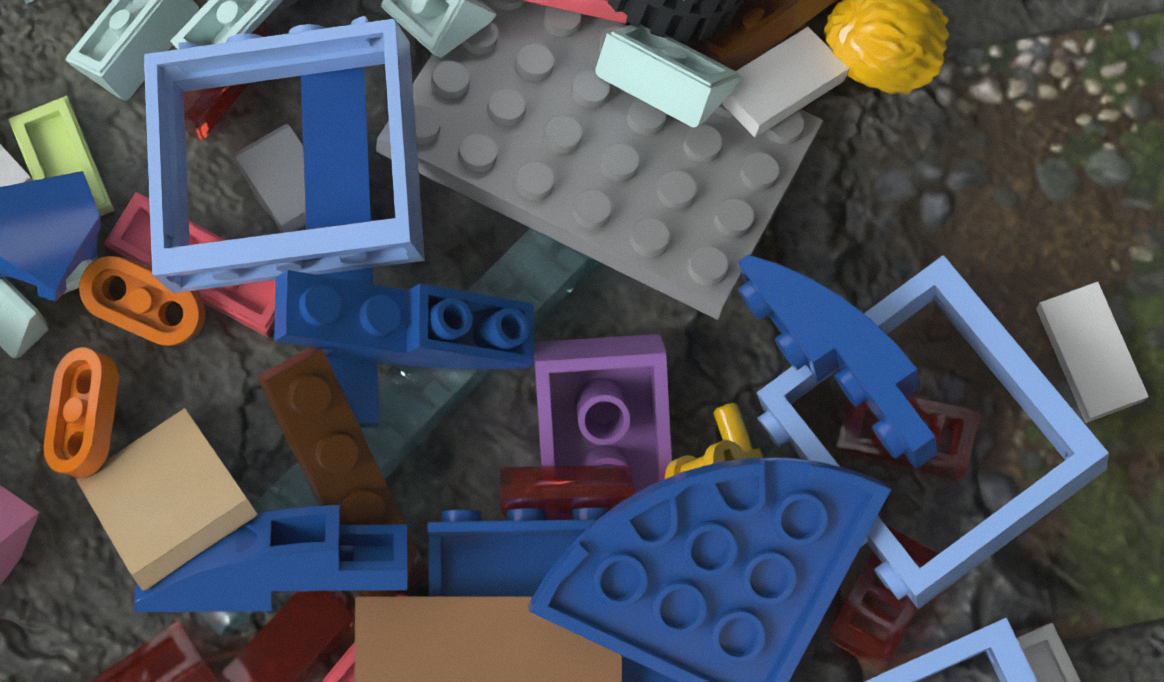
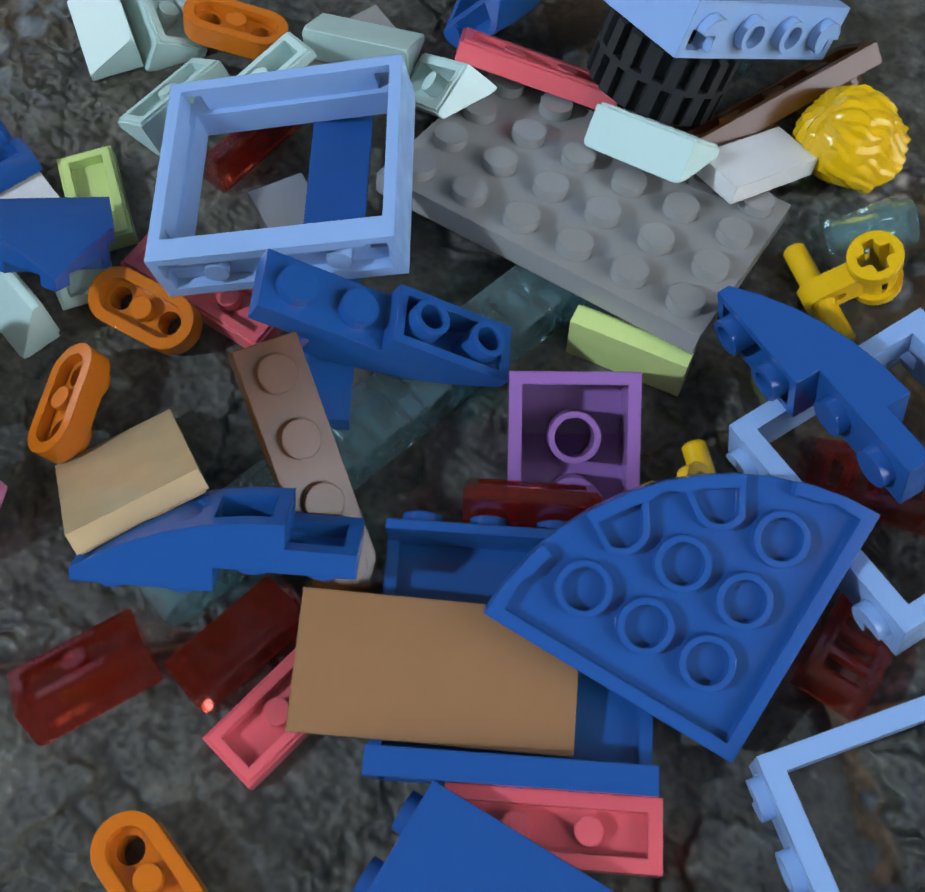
camera: 10 degrees right, 10 degrees down
(652, 308) = (627, 348): none -> yellowish green tile
(856, 223) = (853, 279): none -> yellow piece
(910, 144) = (888, 215): none -> clear light blue cone

